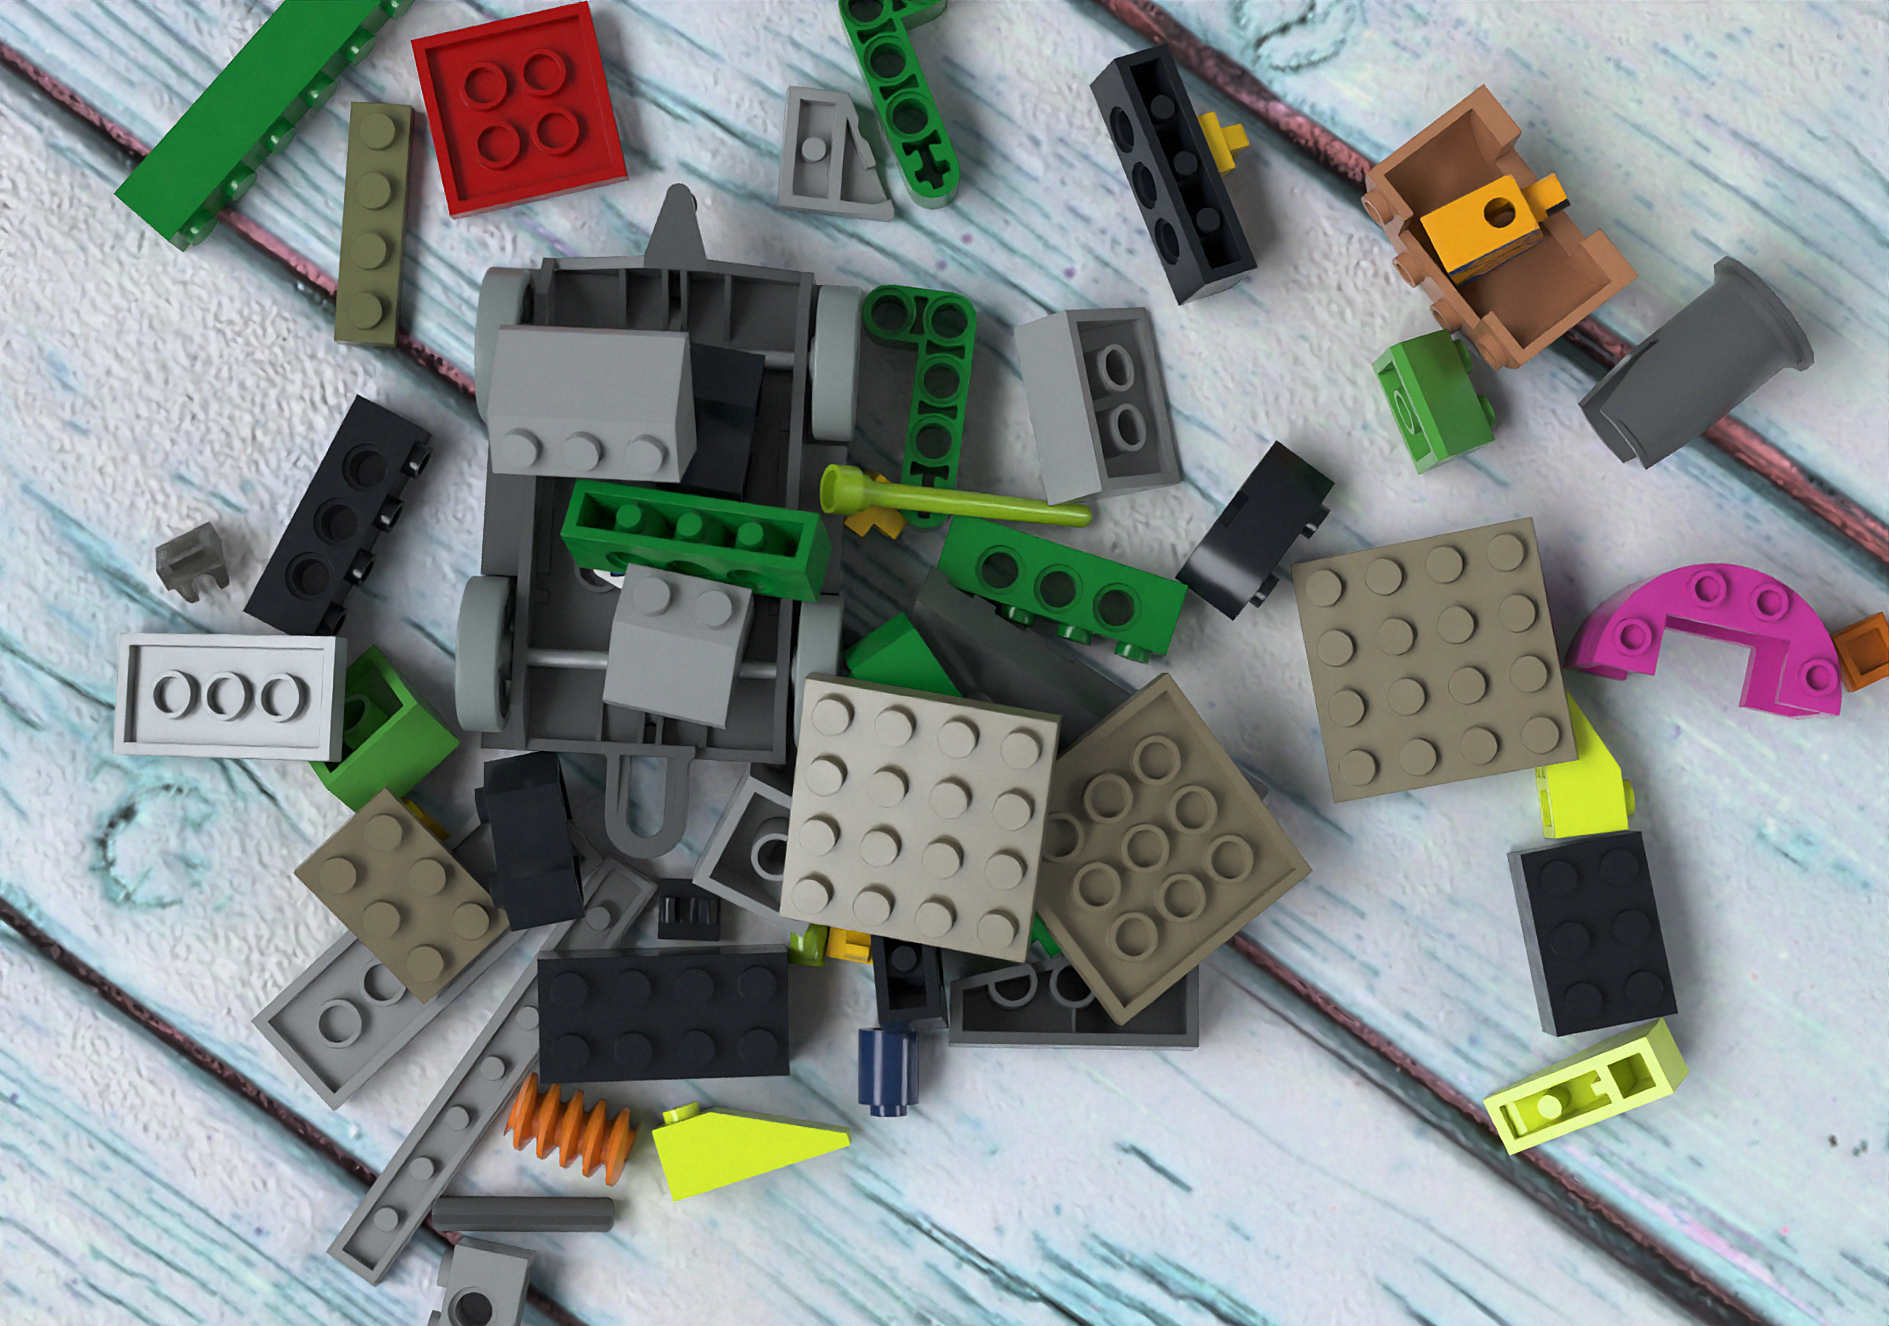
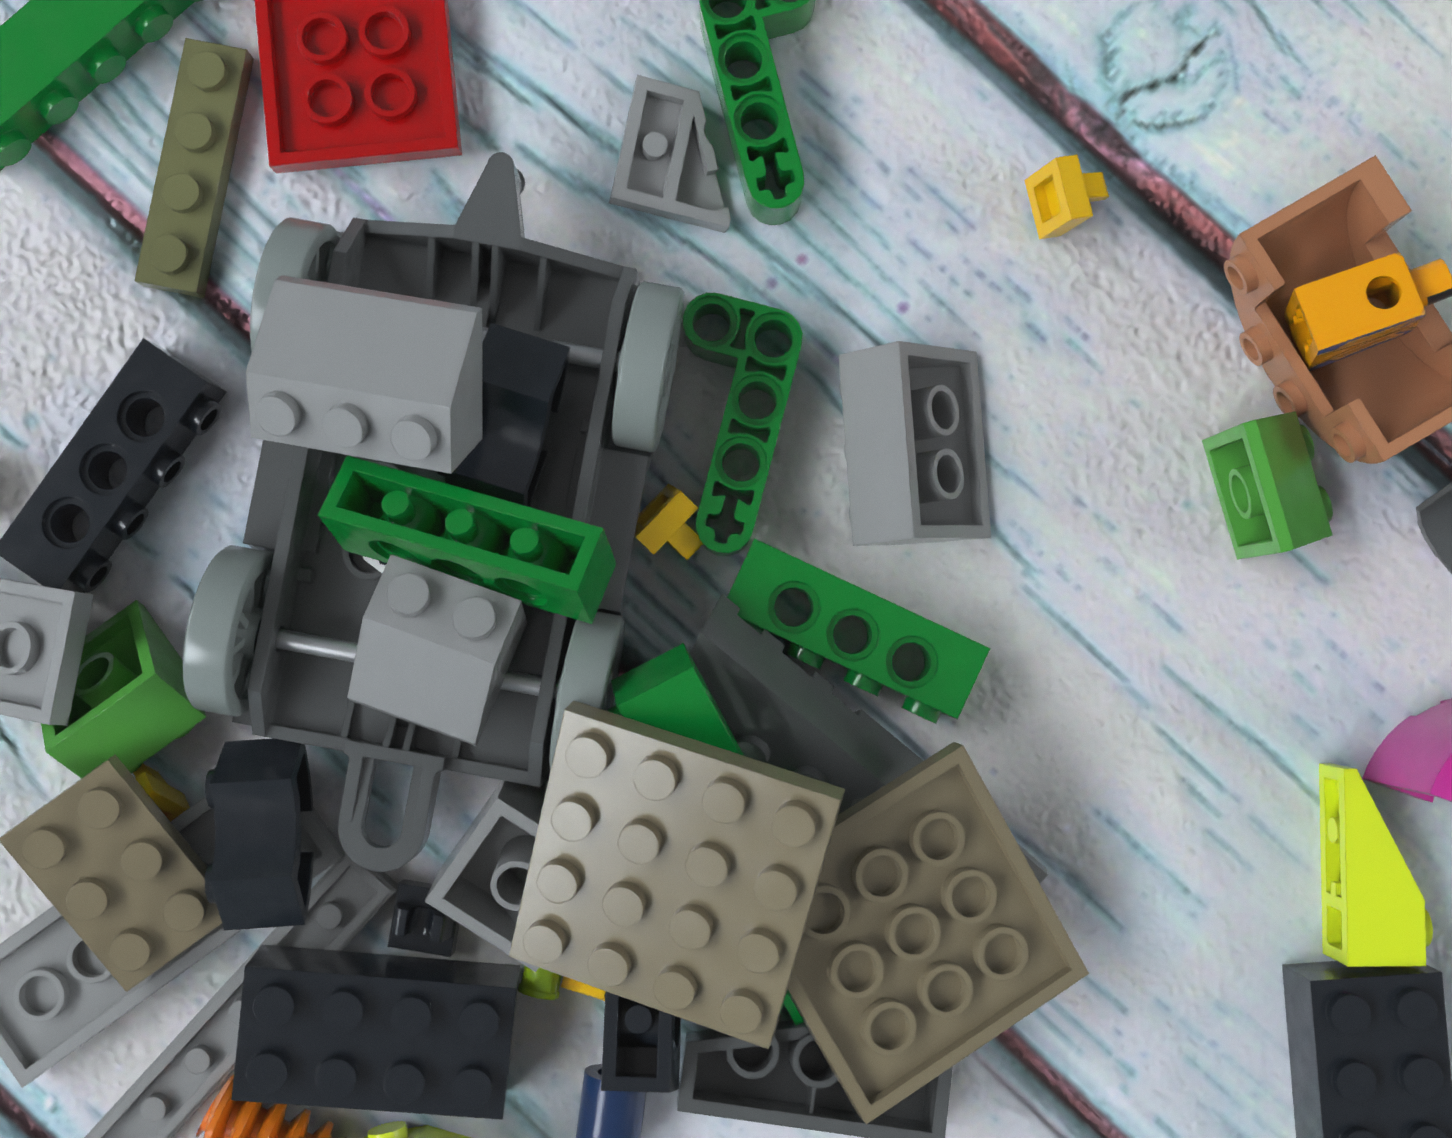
camera: 10 degrees right, 0 degrees up
(847, 491) = (643, 505): lime piece -> none
(1172, 174) = (1025, 215): black brick -> none
(1256, 531) = (1067, 600): black brick -> none
(1434, 661) = (1241, 761): dark tan plate -> none

